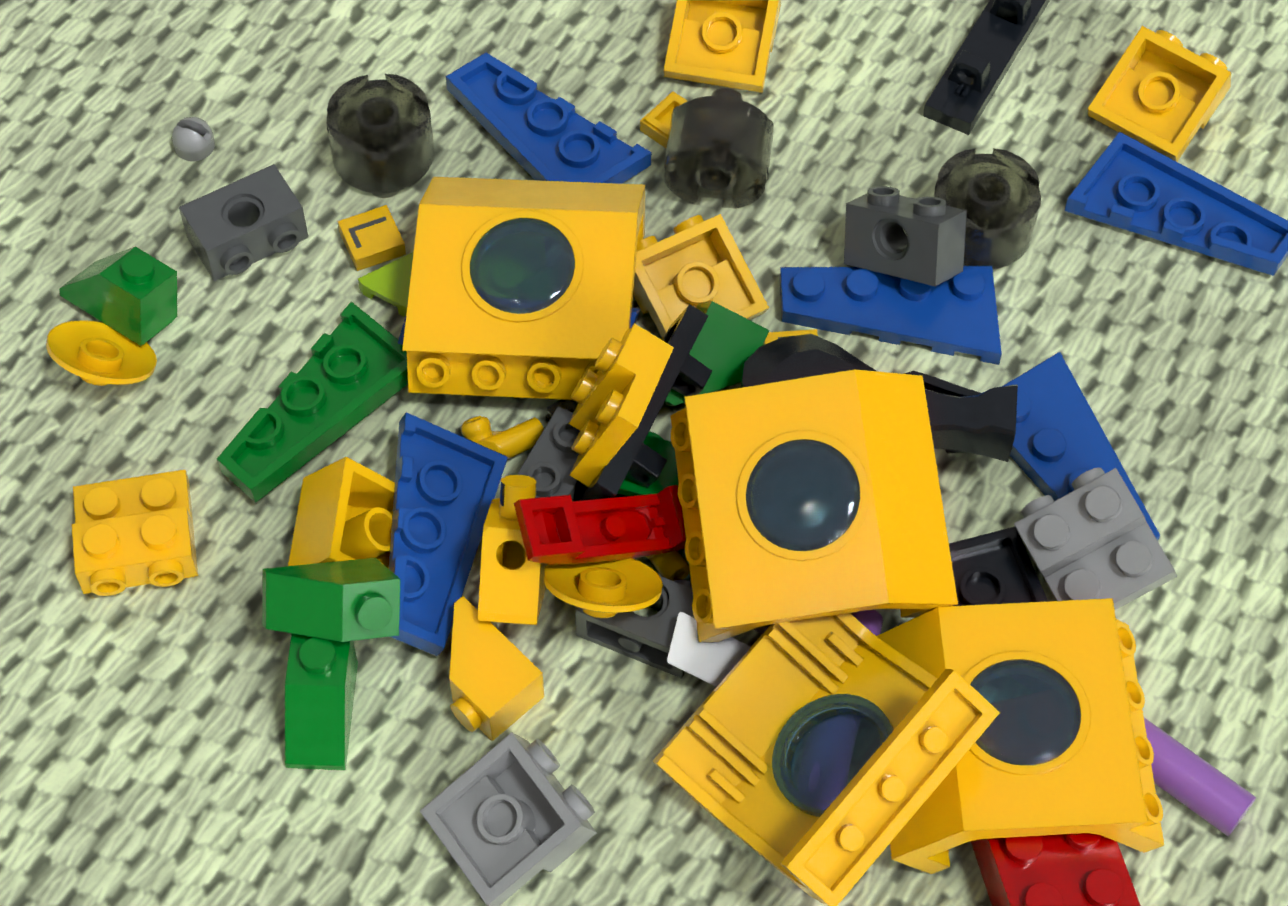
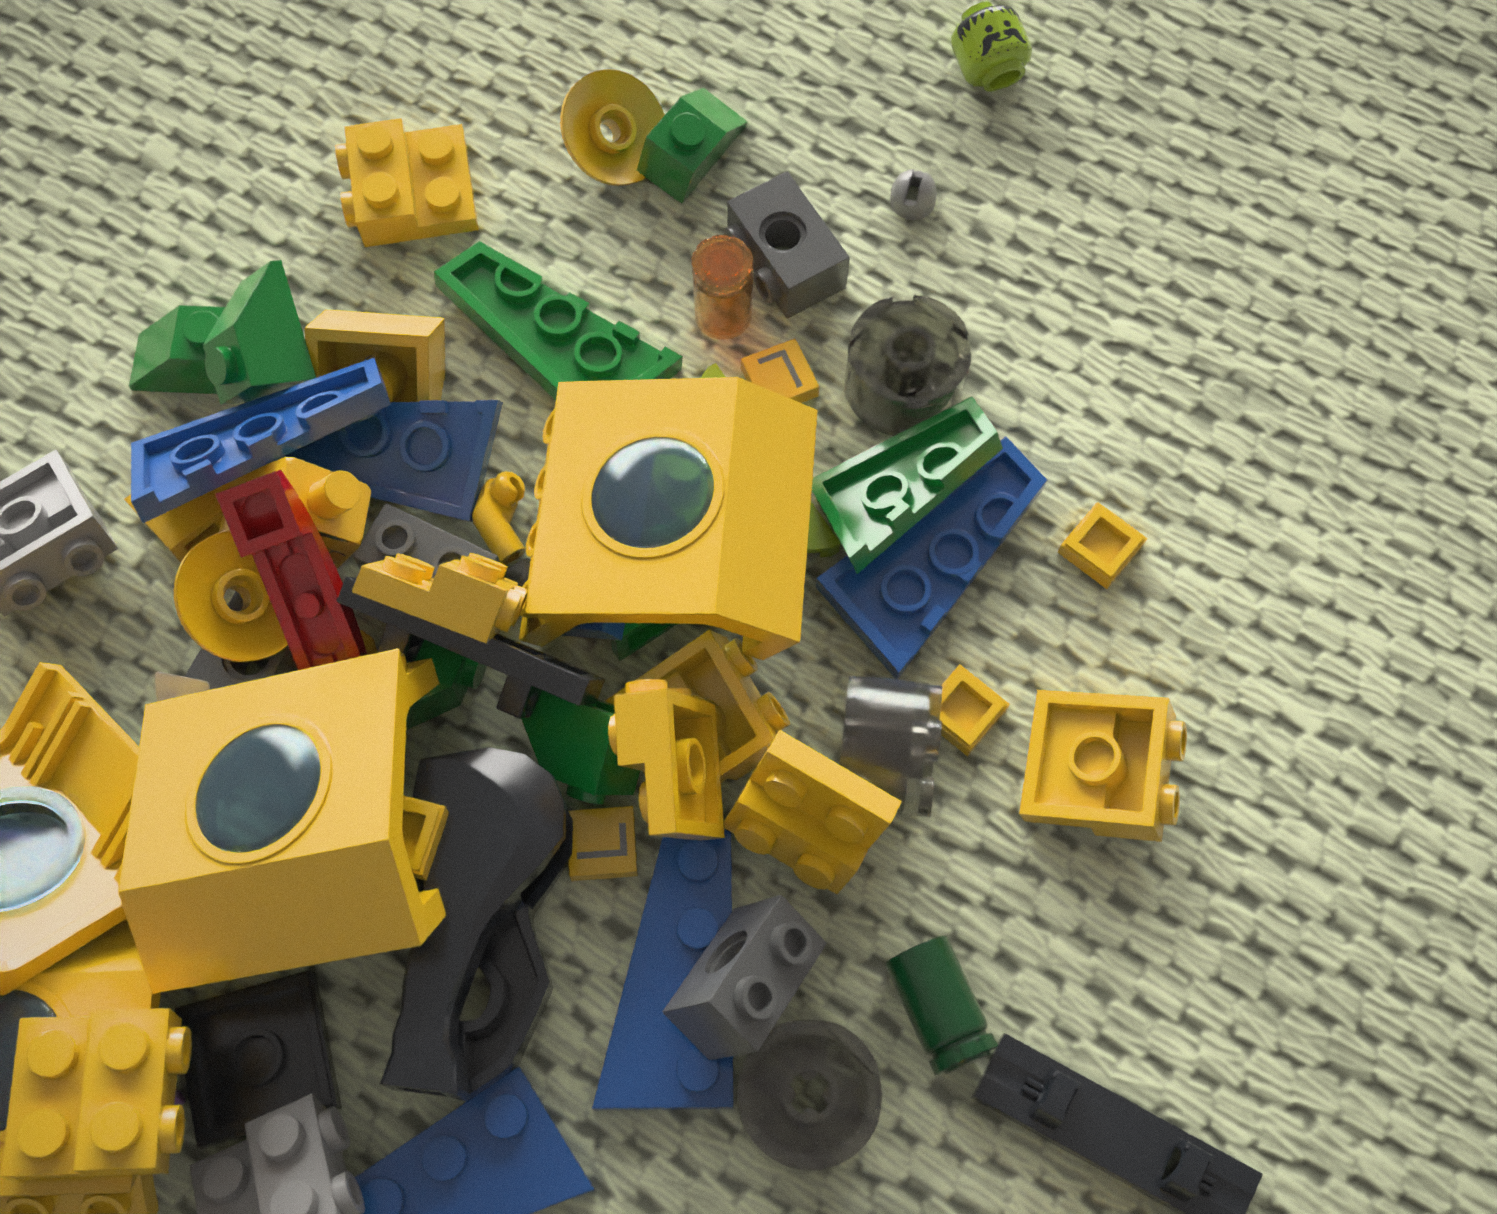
camera: 90 degrees right, 10 degrees up
(48, 70) = (991, 46): none -> lime head
(294, 258) = (722, 286): none -> clear orange piece
(450, 595) = (228, 444): none -> blue wing
(483, 133) = (903, 478): none -> green wing
(537, 31) = (1102, 545): none -> yellow tile
(736, 258) = (678, 749): none -> yellow plate
(778, 195) = (810, 814): none -> yellow plate
(909, 137) = (941, 1005): none -> dark green piece
(1045, 615) = (96, 1095): none -> yellow plate

